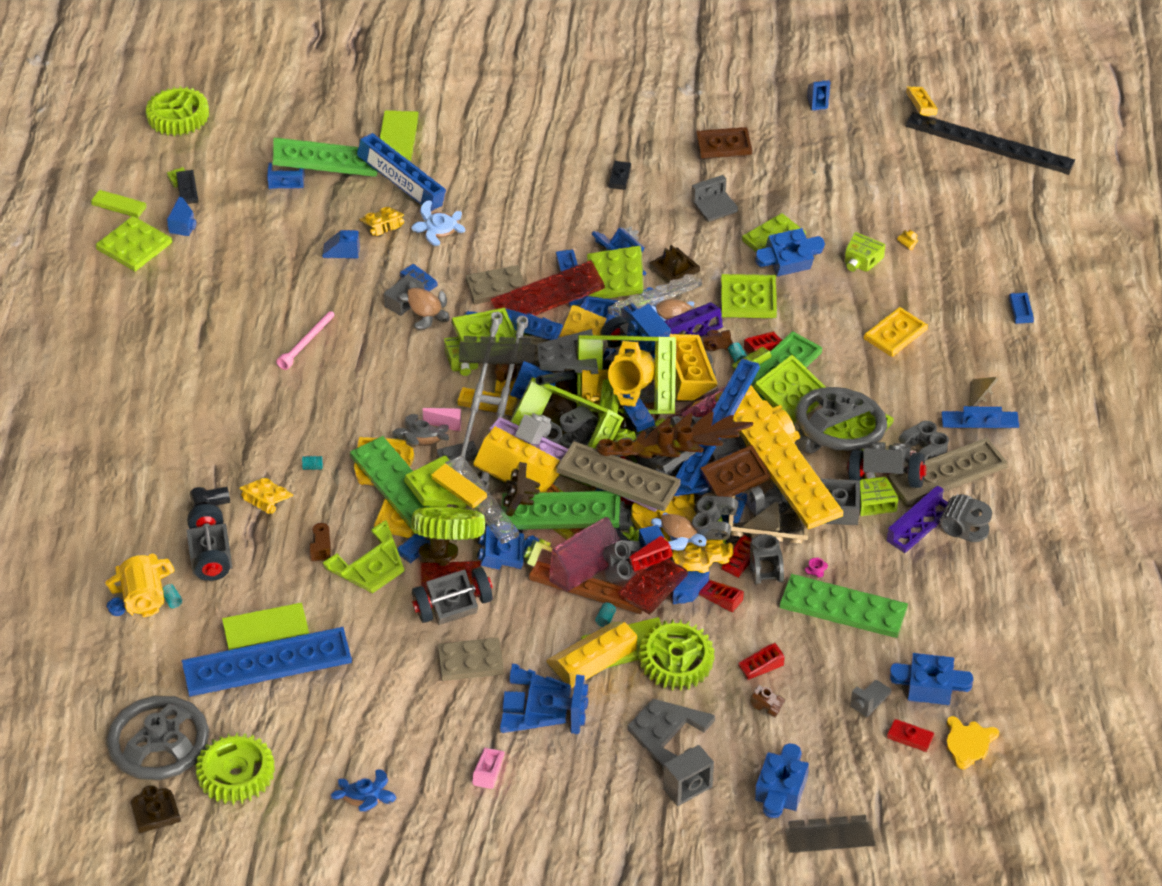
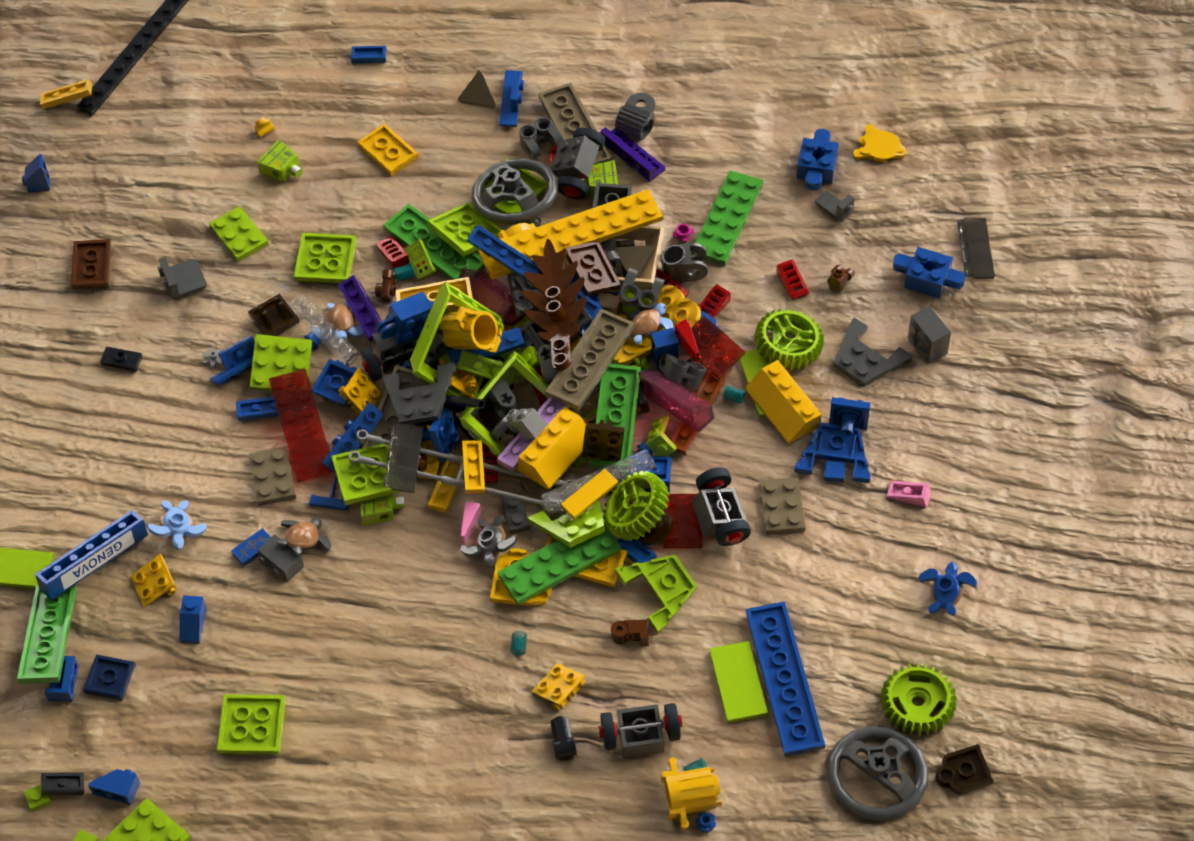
camera: 85 degrees left, 10 degrees up
(236, 293) = (251, 724): none -> lime plate
(286, 360) = (364, 672): bright pink piece -> none
(289, 205) = (109, 677): none -> dark blue tile
(489, 400) = (473, 467): none -> yellow plate
(792, 259) = (275, 216): blue brick -> none
(910, 735) = (873, 183): red plate -> none

